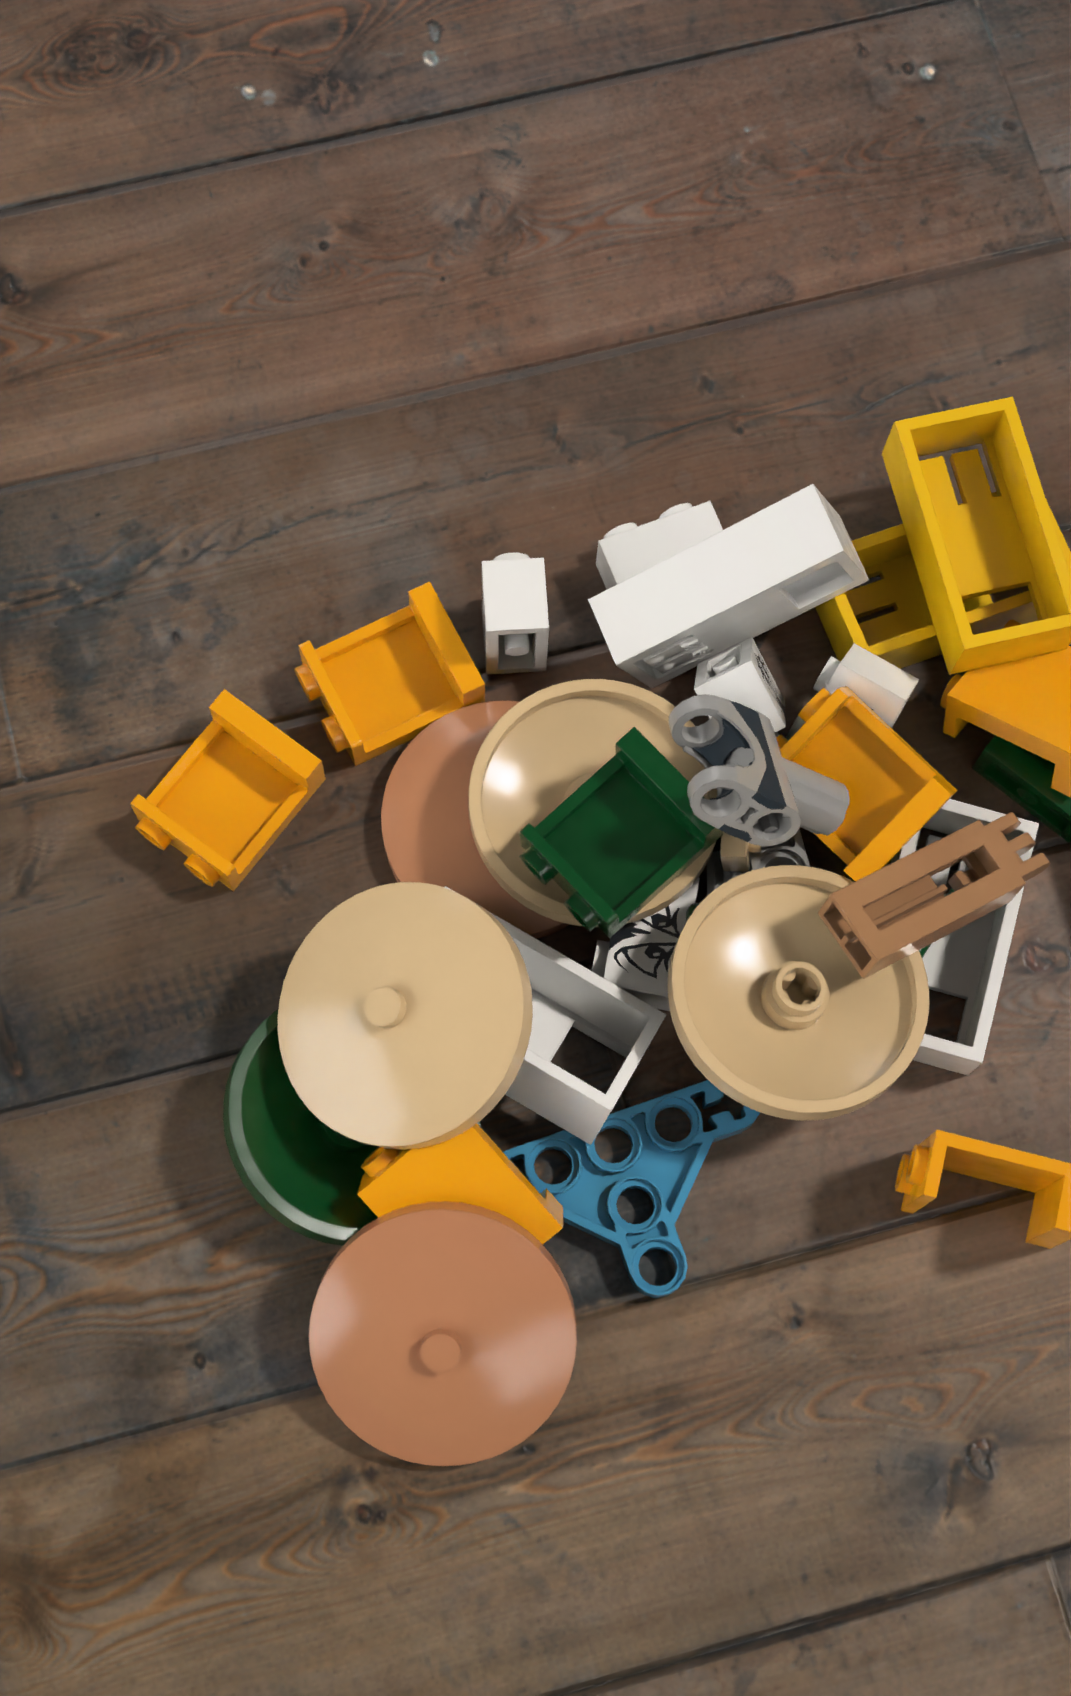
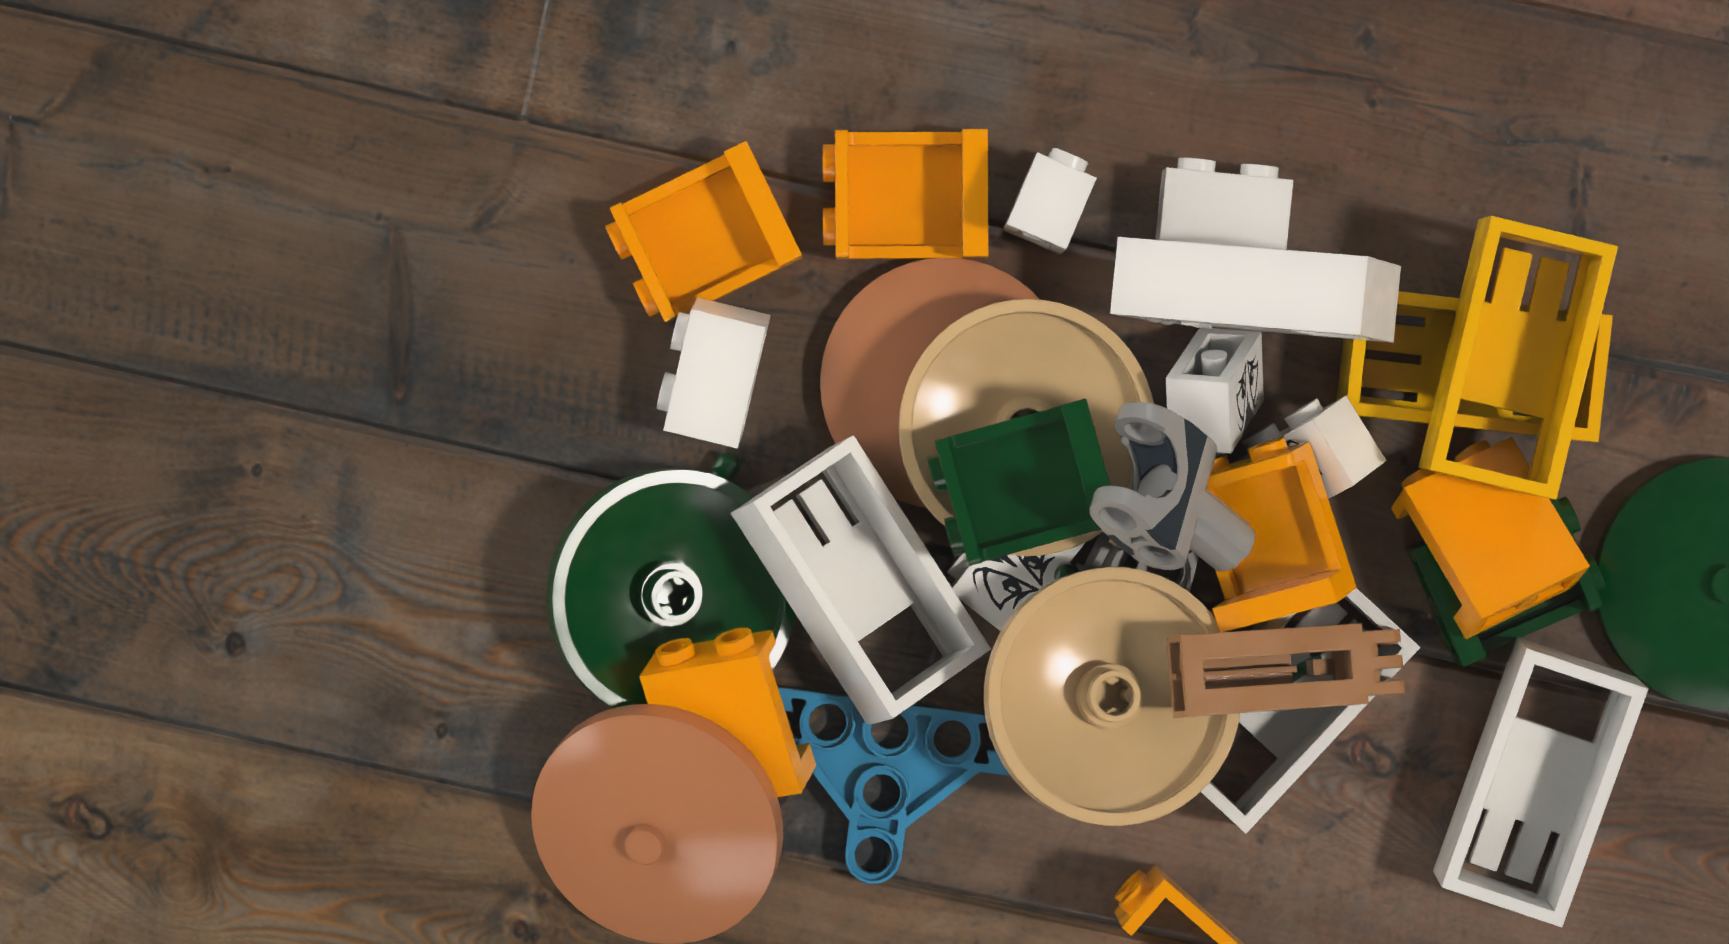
camera: 30 degrees right, 15 degrees up
(290, 891) = (714, 372): none -> white brick
(405, 1016) = (754, 547): tan dish -> none

